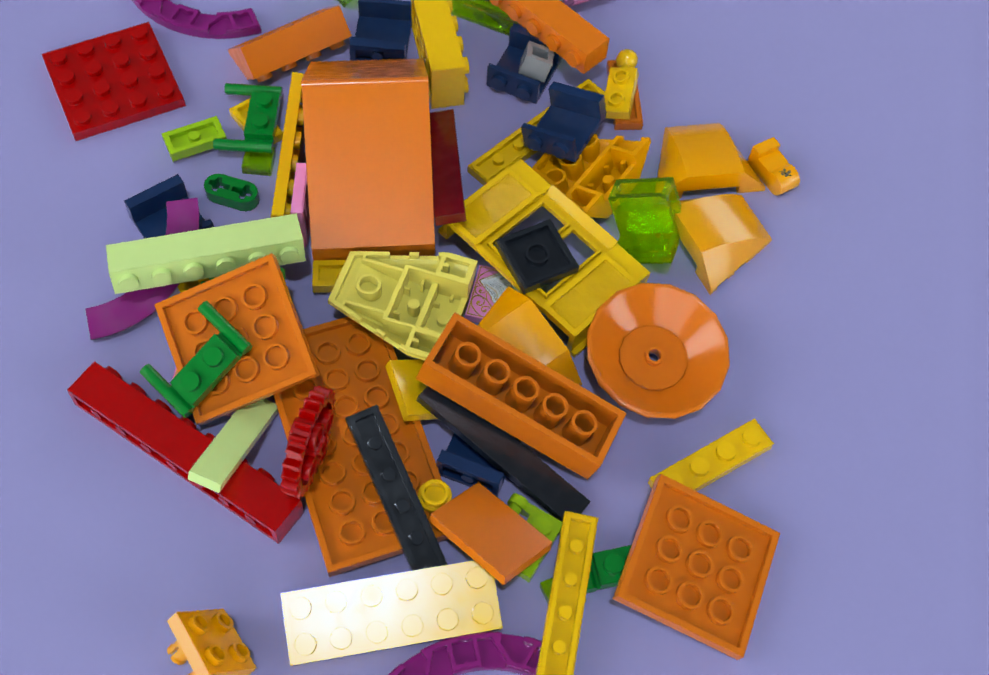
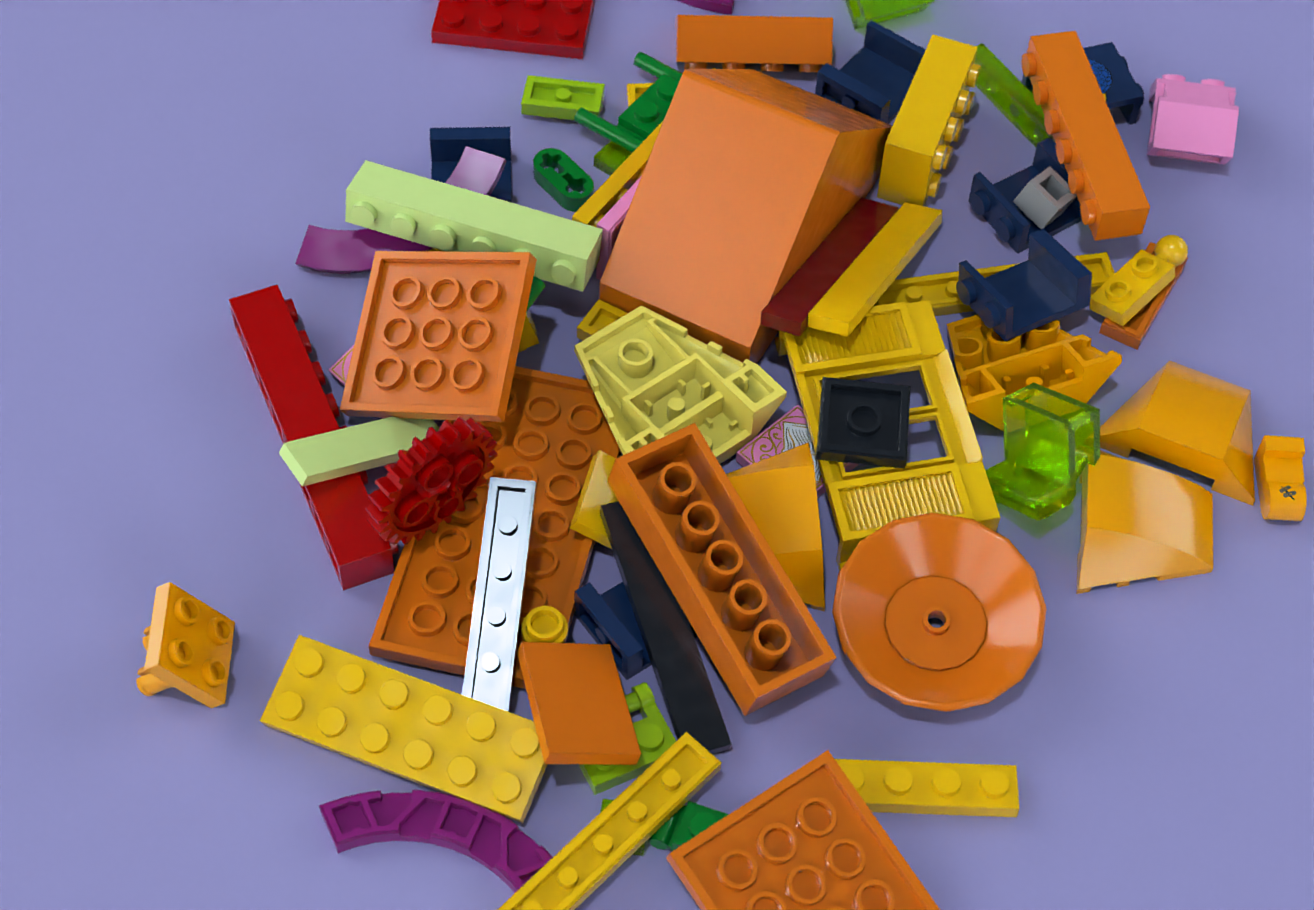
camera: 35 degrees right, 5 degrees down
(205, 368) = (383, 347): green plate -> none
(474, 156) = (874, 269): none -> yellow tile

